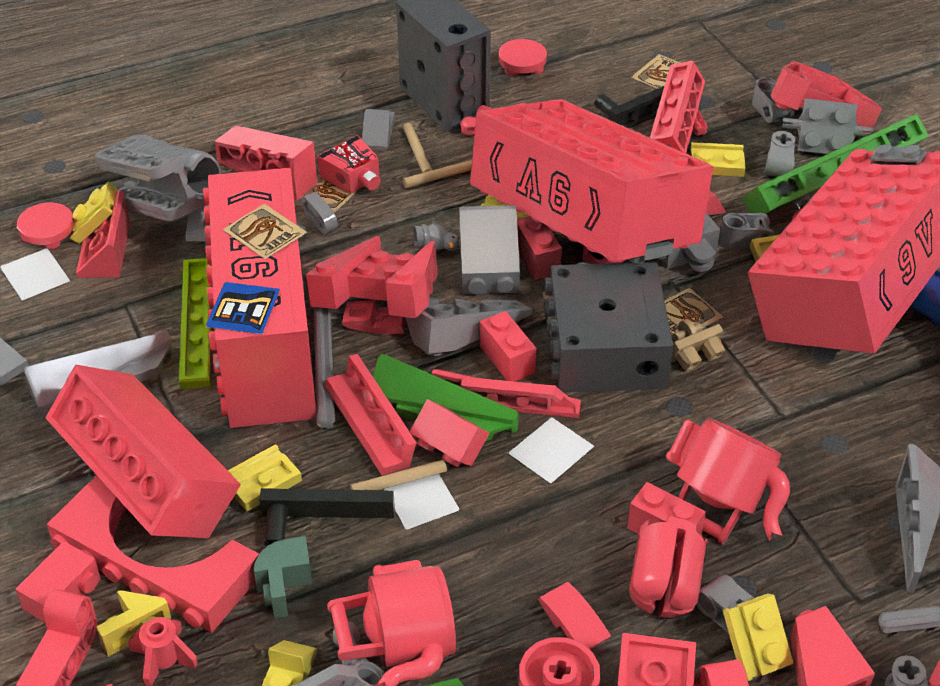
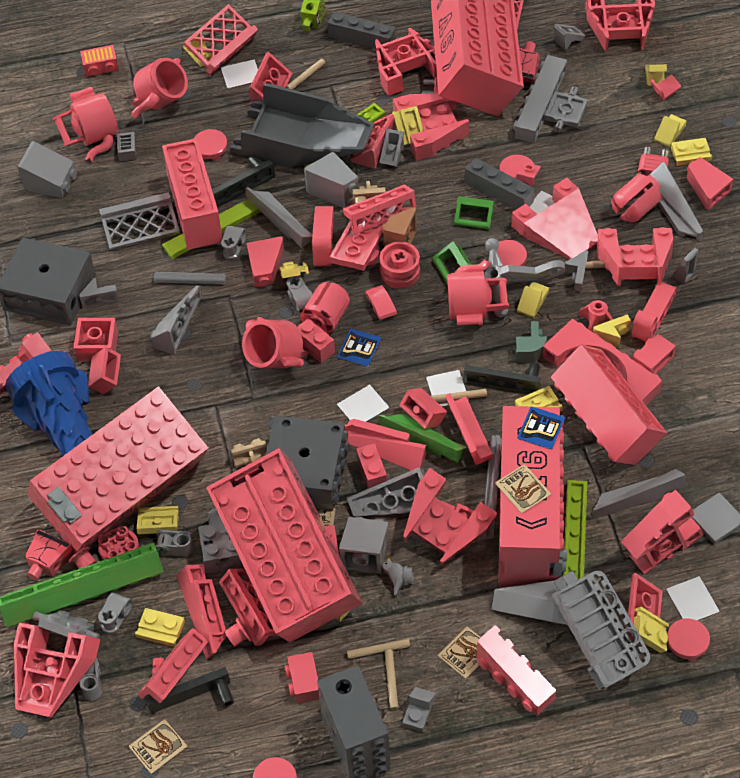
camera: 165 degrees left, 10 degrees up
(68, 288) = (662, 532): none -> coral wedge
(319, 213) = (479, 613): light grey beam -> none
(350, 166) = (448, 656): coral torso -> none
(589, 542) = (359, 347): none -> sticker

